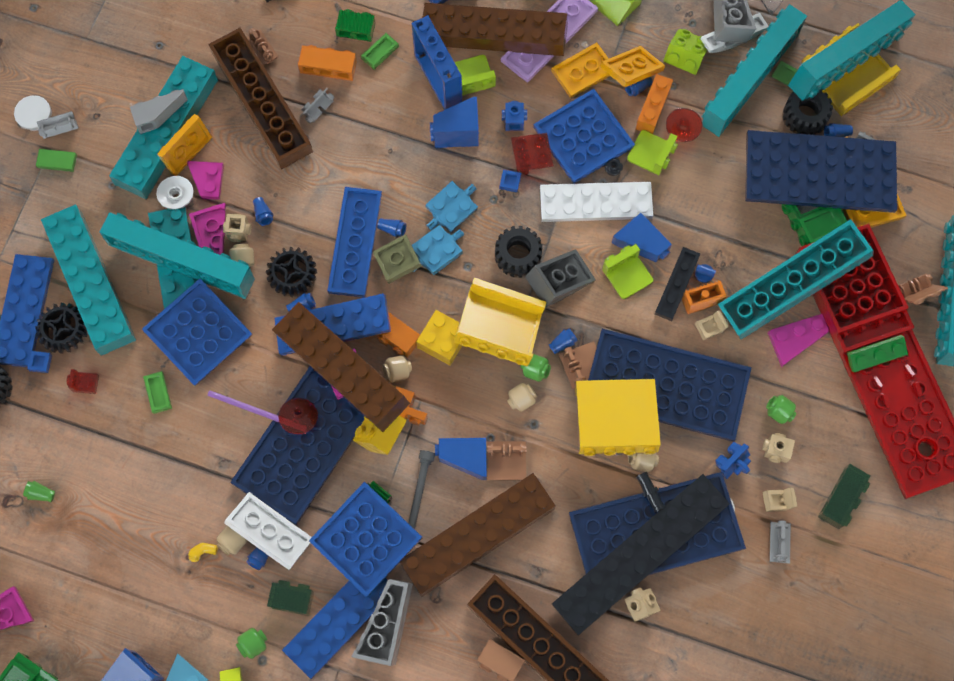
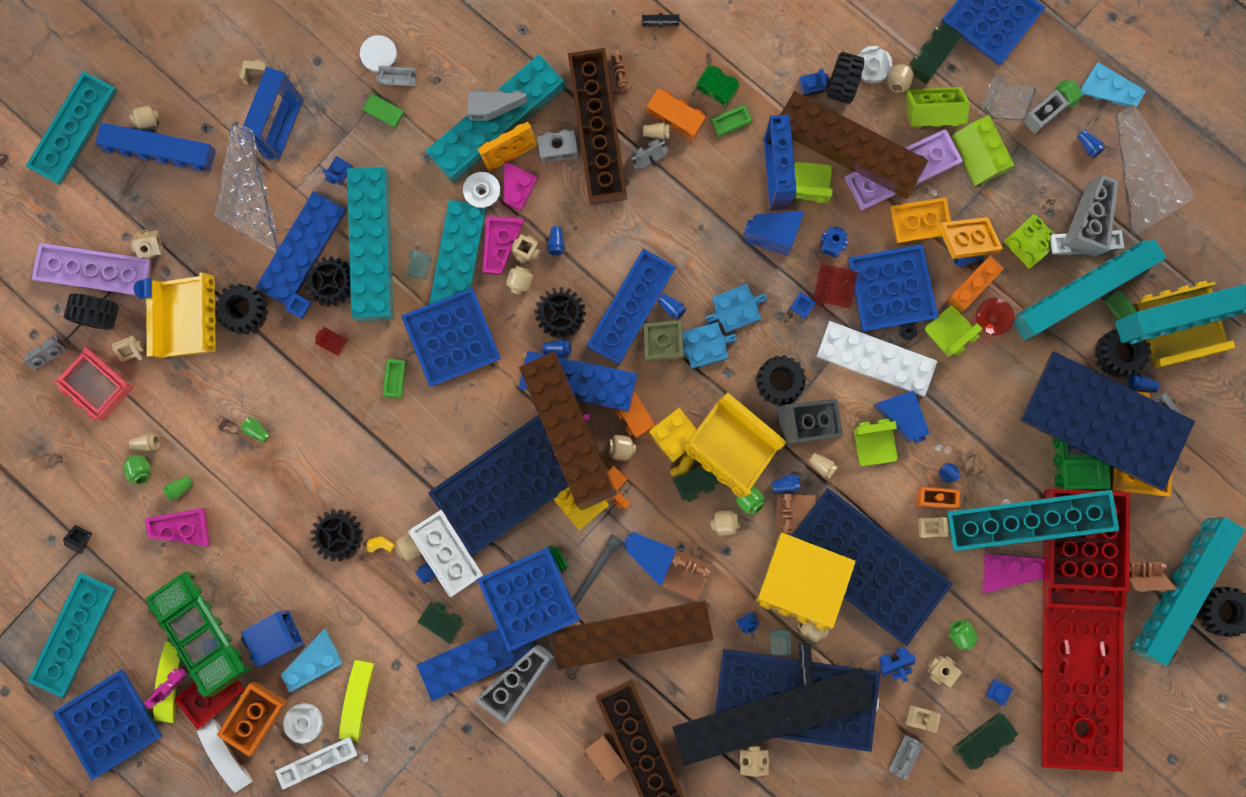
camera: 25 degrees right, 10 degrees up
(32, 228) = (337, 171): none -> blue bracket
(141, 280) = (419, 264): none -> clear light blue panel
(157, 549) = (341, 528): none -> black gear
(177, 254) = (459, 257): teal brick -> none
(227, 138) = (566, 151): none -> light grey brick
(244, 406) = (469, 428): medium lavender axle -> none
(251, 643) = (391, 648): bright green head -> none
(298, 423) = (509, 465): clear red dish -> none
(316, 83) = (657, 131): none -> tan cone
(463, 361) = (684, 467): none -> yellow arm
(480, 371) = (695, 482): none -> clear green brick
(581, 480) = (748, 623): none -> blue plate
(589, 311) = (823, 465): none -> tan cone
(618, 483) = (780, 642): none -> clear light blue panel
(677, 284) = (918, 473): black plate -> none
(836, 448) = (998, 692): none -> blue plate
(877, 353) = (1078, 621): green plate -> none

